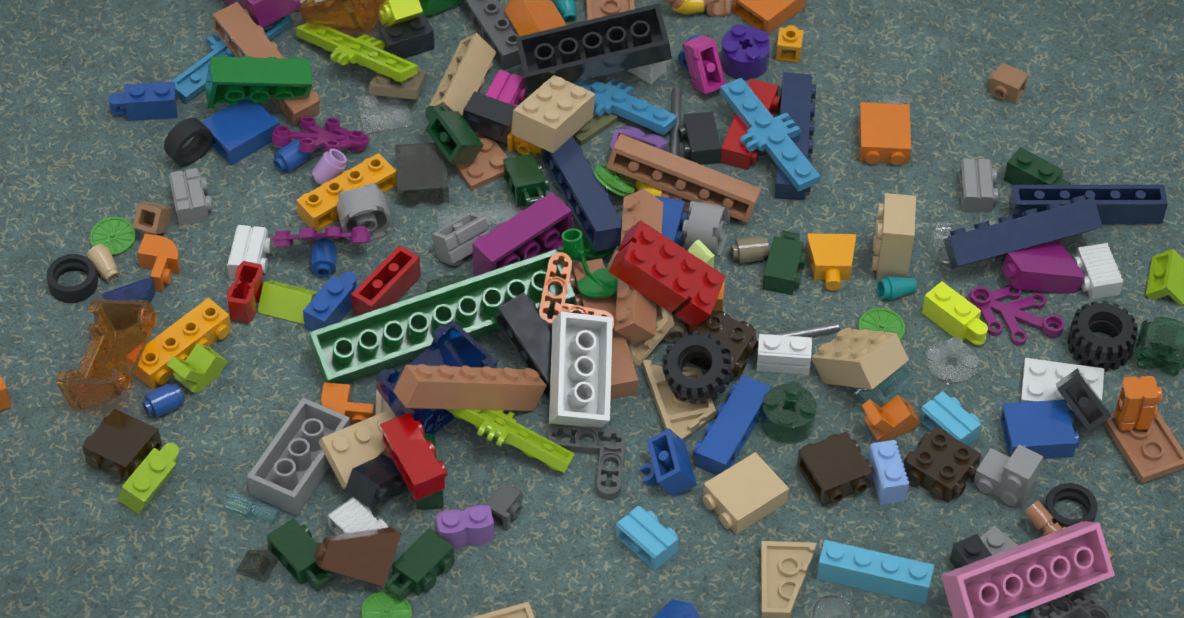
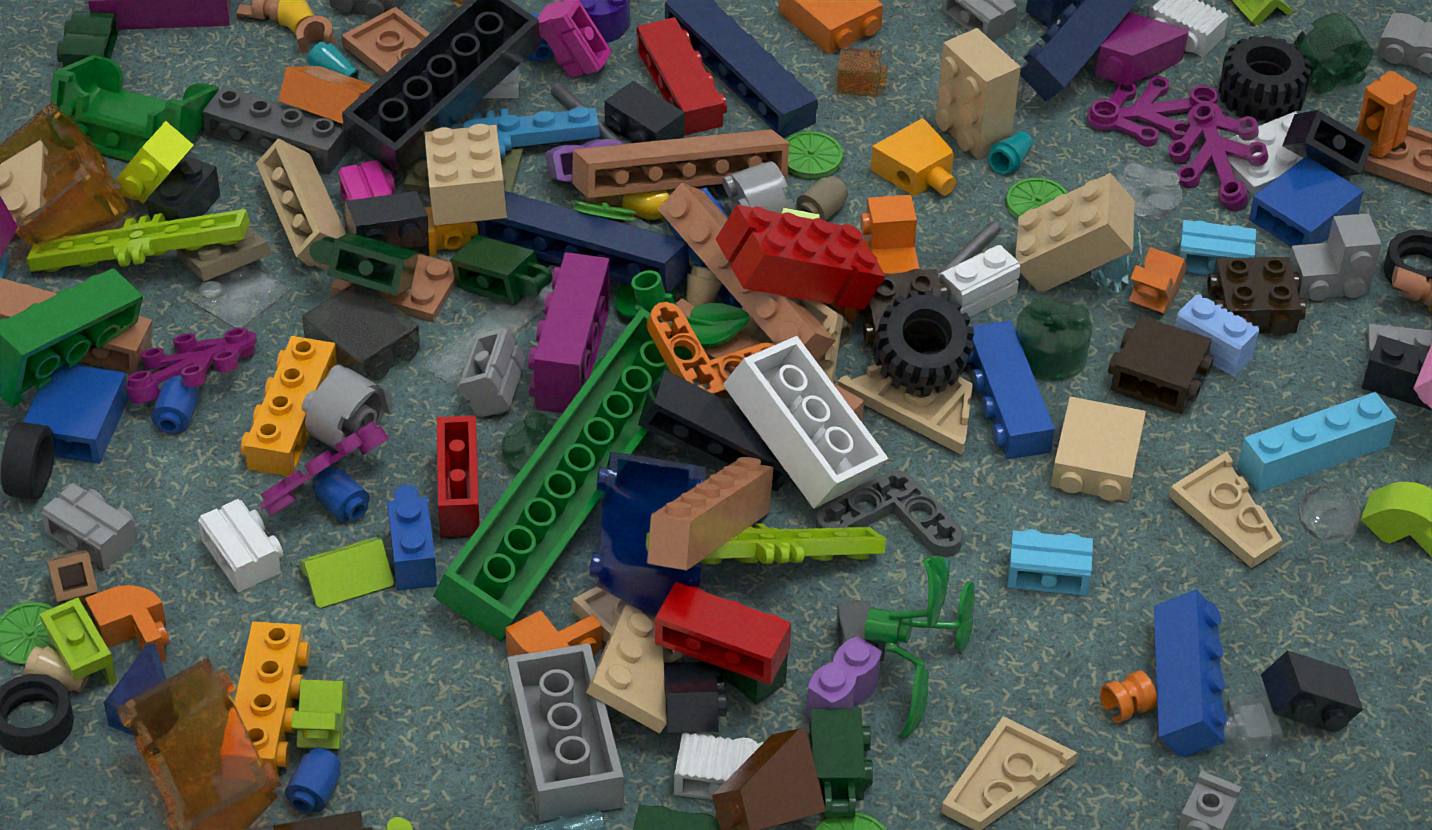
camera: 40 degrees left, 5 degrees down
(122, 255) = (78, 641): none -> lime panel
(245, 292) = (290, 585): red brick -> none
(329, 166) = (243, 388): lavender brick -> none
(511, 510) = (896, 627): none -> green plant
(669, 464) = (990, 467): blue brick -> none
(755, 296) = (891, 232): none -> orange brick
(770, 134) = (724, 67): dark azure hinge -> none
(777, 216) = (813, 155): none -> bright green wheel
(783, 264) = (866, 180): dark green brick -> none
(858, 183) = (861, 72): none -> clear orange brick
(954, 314) = (1104, 142): neon yellow brick -> none
(1034, 340) = (1206, 120): none -> magenta plant

